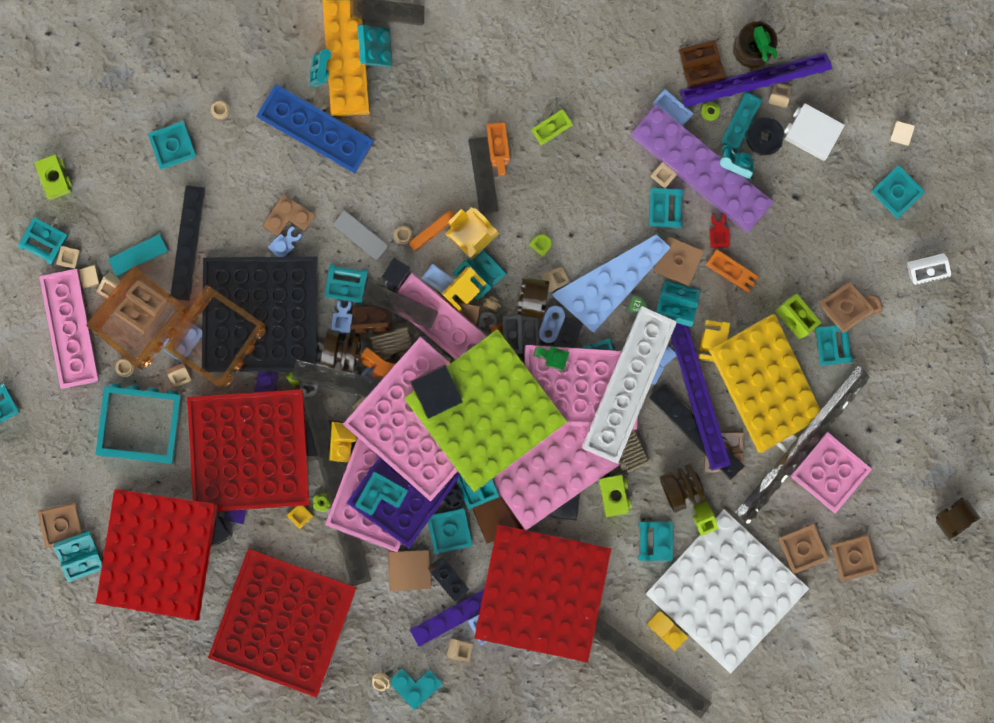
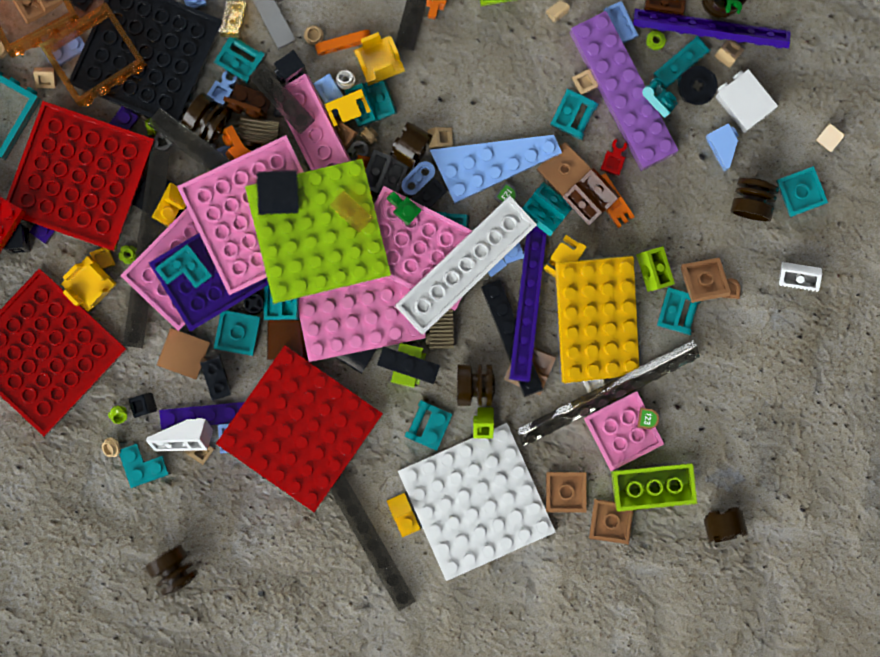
camera: 20 degrees right, 0 degrees up
(297, 544) = (87, 284): none -> yellow panel
(325, 251) = (233, 19): none -> clear yellow plate
(374, 649) = (118, 414): none -> lime plate
(392, 631) = (142, 405): none -> black slope
(442, 644) = (184, 436): none -> white slope
(448, 258) = (345, 75): none -> white plate
(509, 381) = (351, 212): none -> clear yellow plate
(541, 244) = (441, 99): lime tile -> none
(611, 121) = (558, 10): none -> tan slope
(616, 495) = (408, 365): none -> black plate
(713, 276) = (591, 196): none -> reddish brown slope
(811, 179) = (723, 144): none -> light blue slope
(848, 453) = (647, 418): none -> tile
(859, 217) = (755, 195): none -> dark brown wheel
(879, 511) = (654, 487): none -> lime slope

